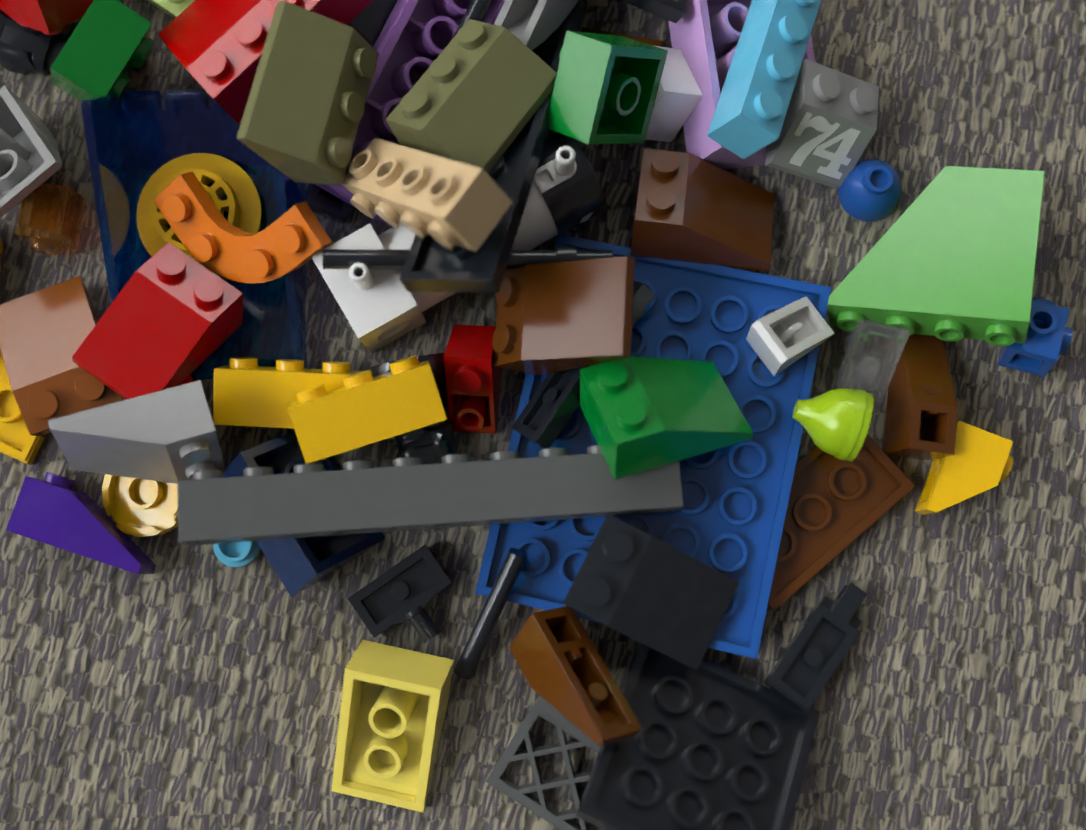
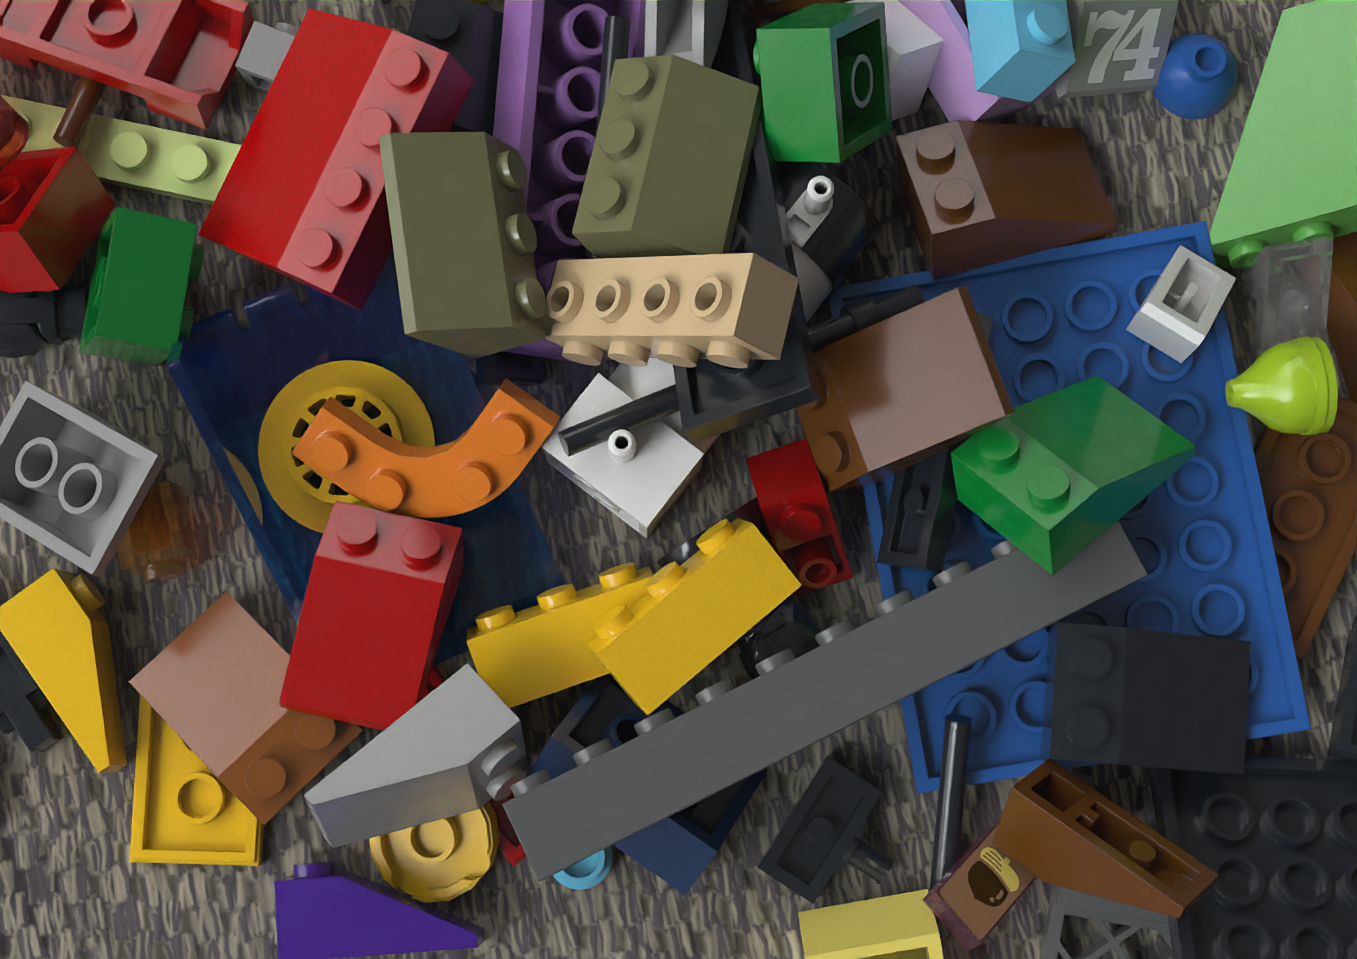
camera: 25 degrees left, 0 degrees up
(484, 675) = (978, 890): none -> tile

